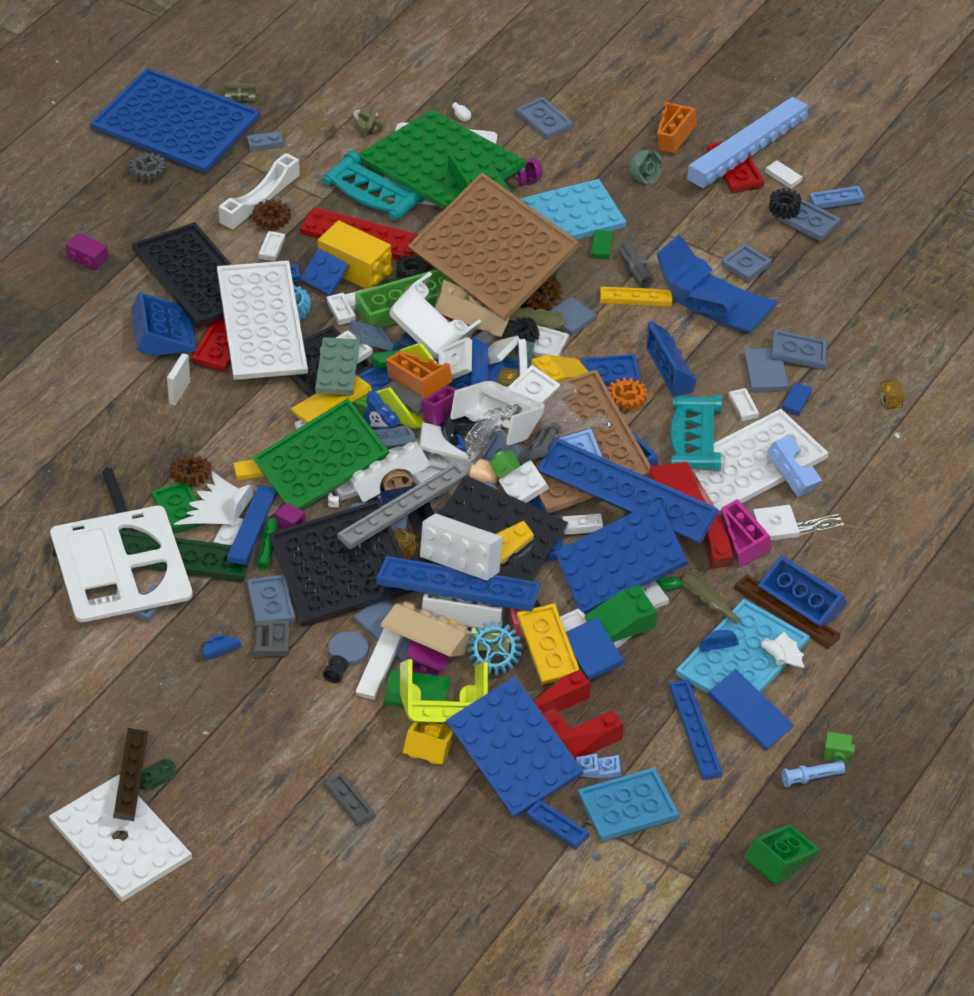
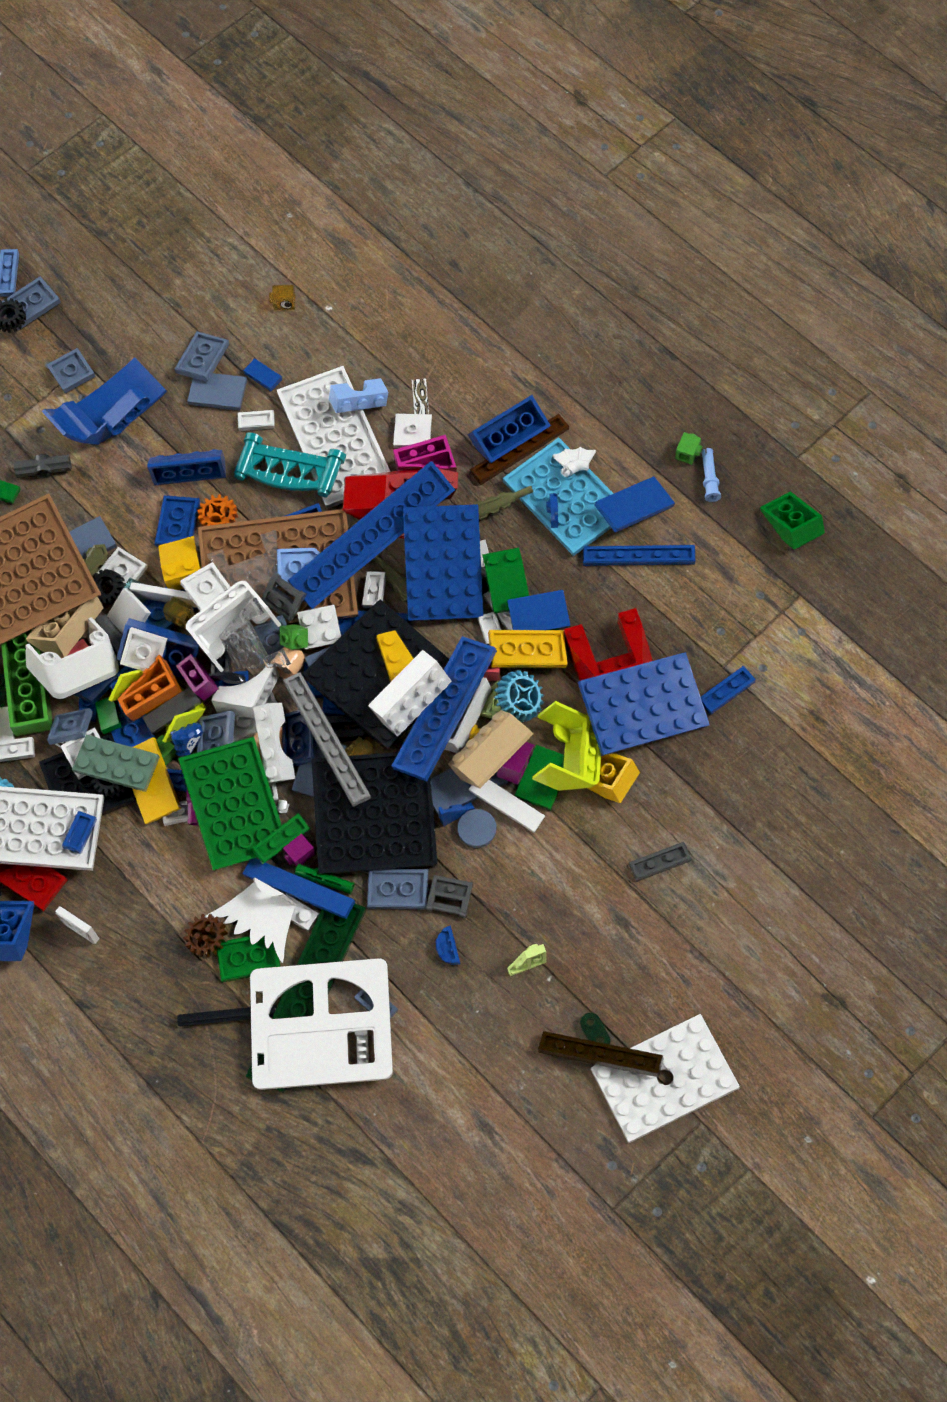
camera: 70 degrees left, 20 degrees up
(217, 704) = (532, 957): none -> yellowish green wing
(247, 470) = (214, 880): yellow tile -> none
(264, 357) = (79, 832): none -> blue tile
(286, 493) = (280, 838): none -> green tile
(336, 667) = (504, 843): black wheel -> none
(356, 622) = (453, 813): none -> blue tile
(599, 768) = (666, 641): light blue slope -> none
(628, 804) = (715, 628): dark azure plate -> none
(635, 296) = (82, 477): yellow tile -> none

